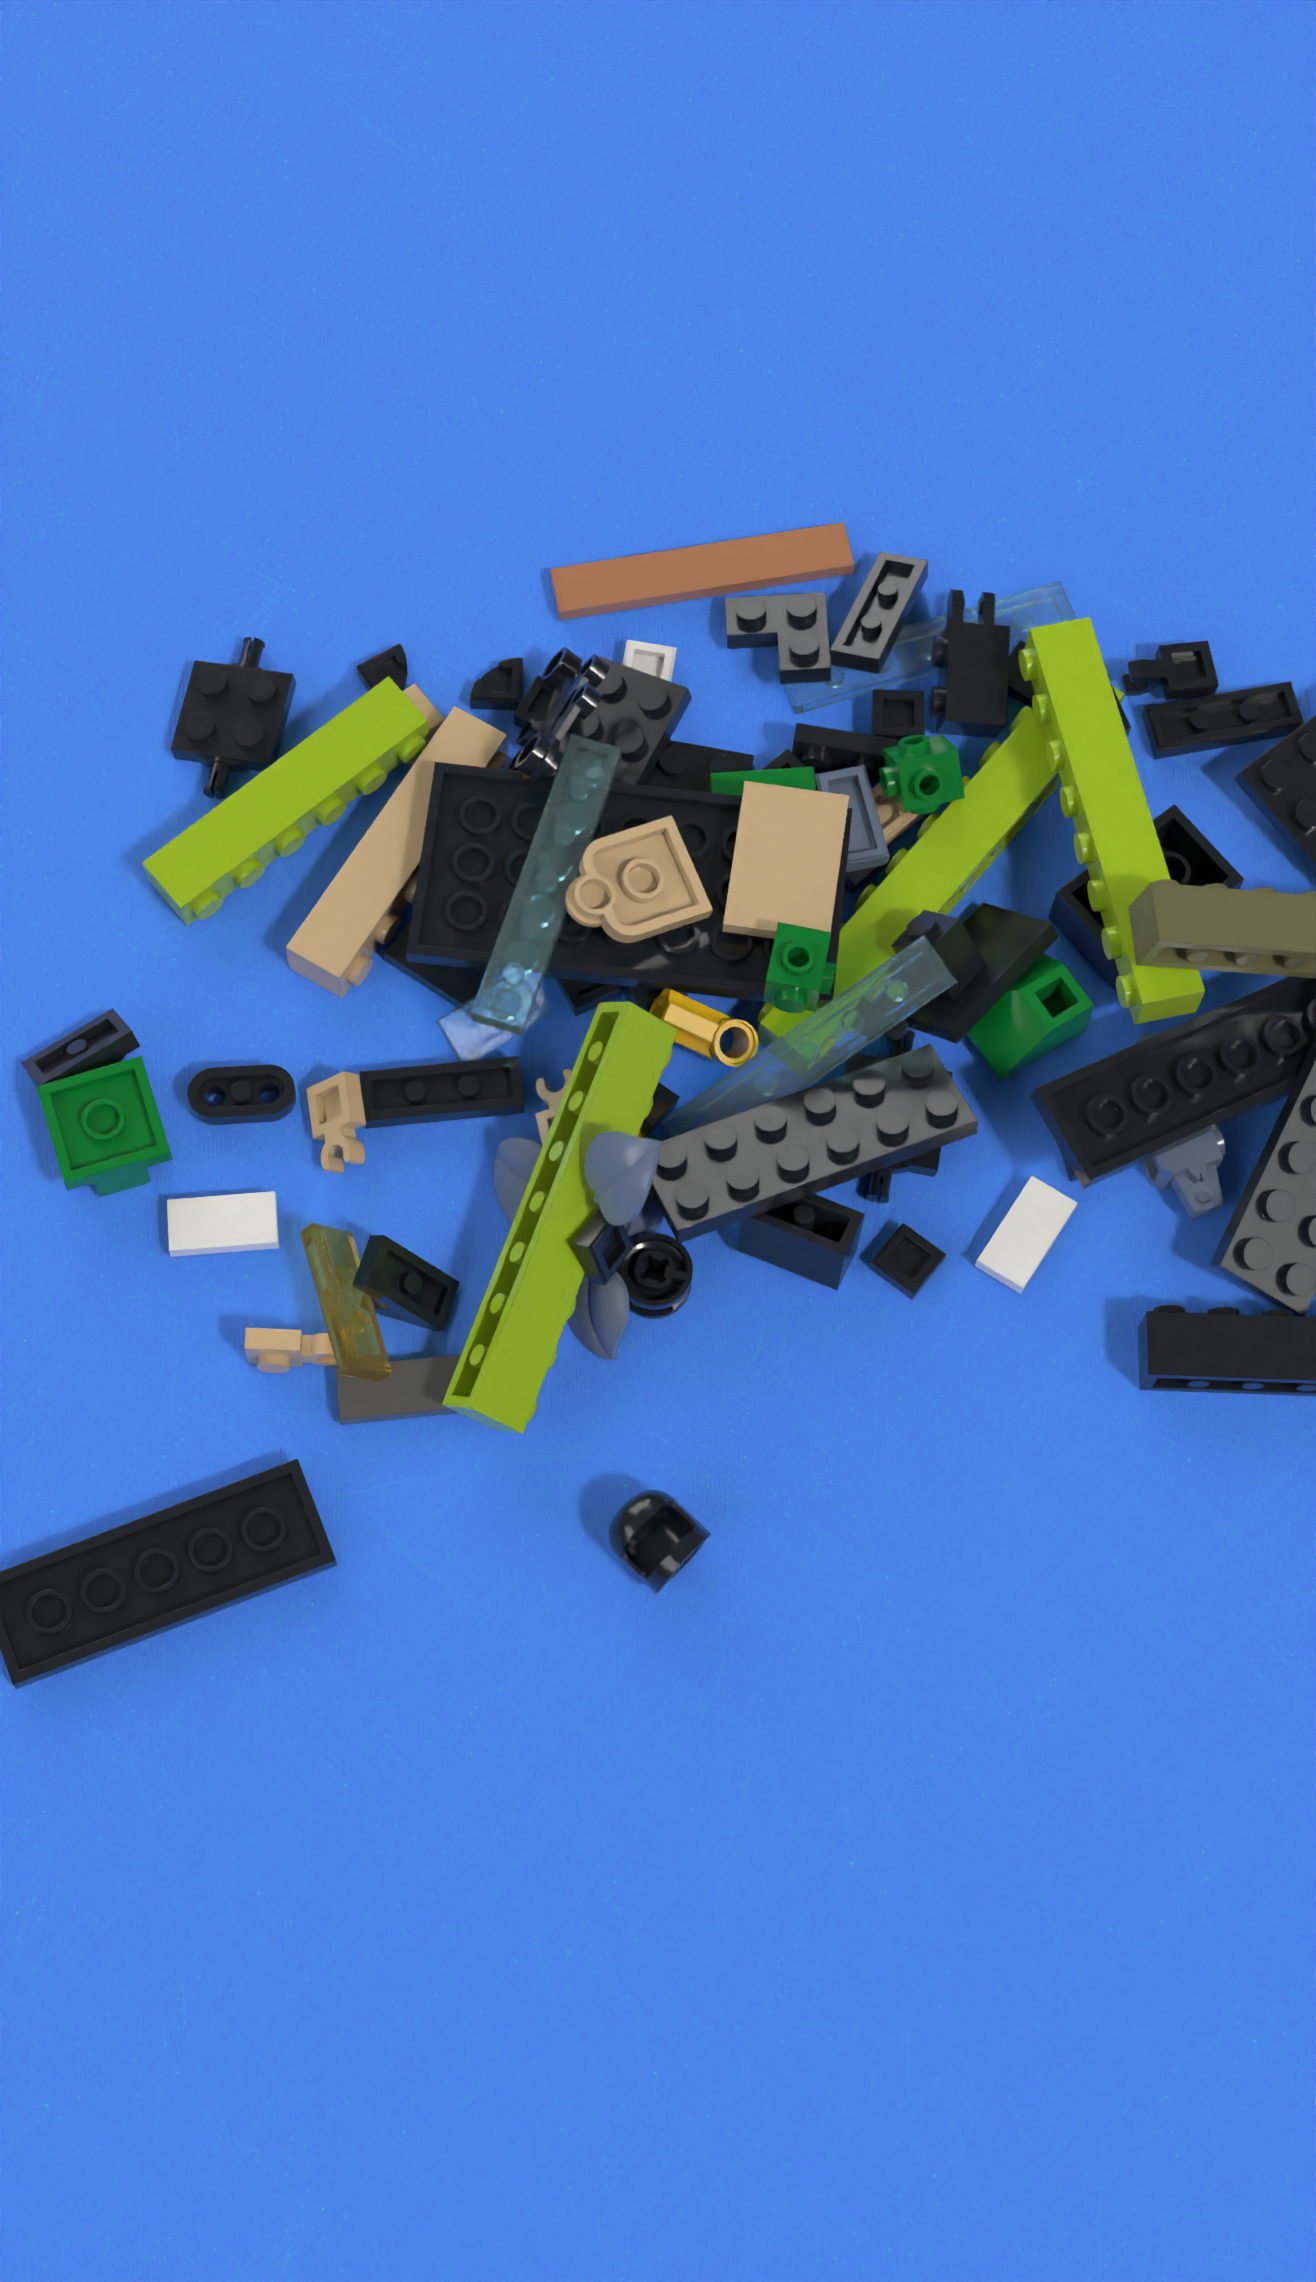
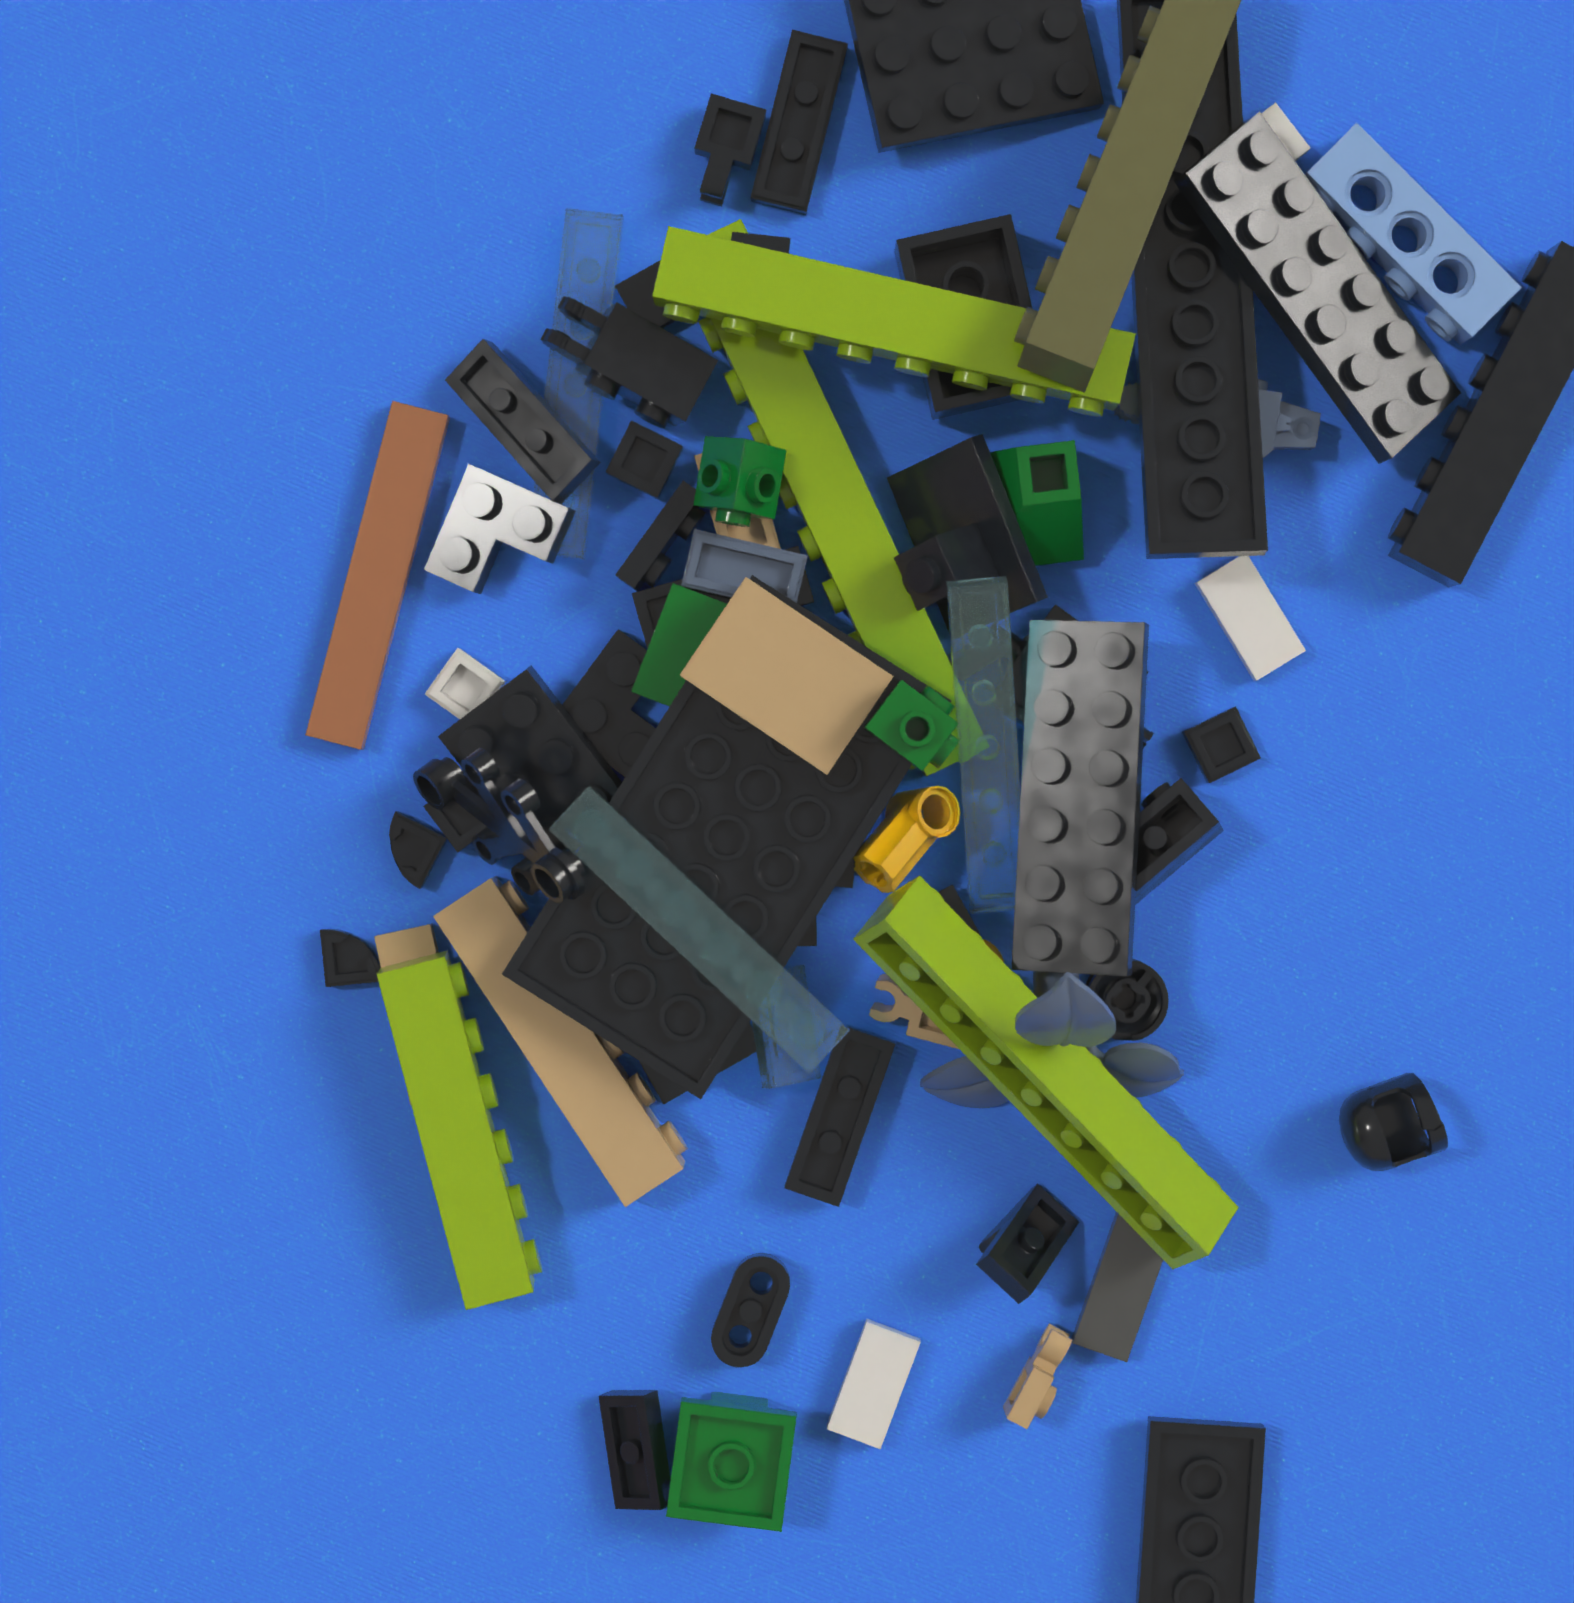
camera: 55 degrees left, 20 degrees up
(233, 716) = (325, 1136): black plate -> none
(334, 1115) = (819, 1227): tan plate -> none
(345, 1309) = (1047, 1316): clear yellow tile -> none
(601, 1248) = (1105, 1060): black tile -> none
(638, 884) = (747, 841): tan plate -> none

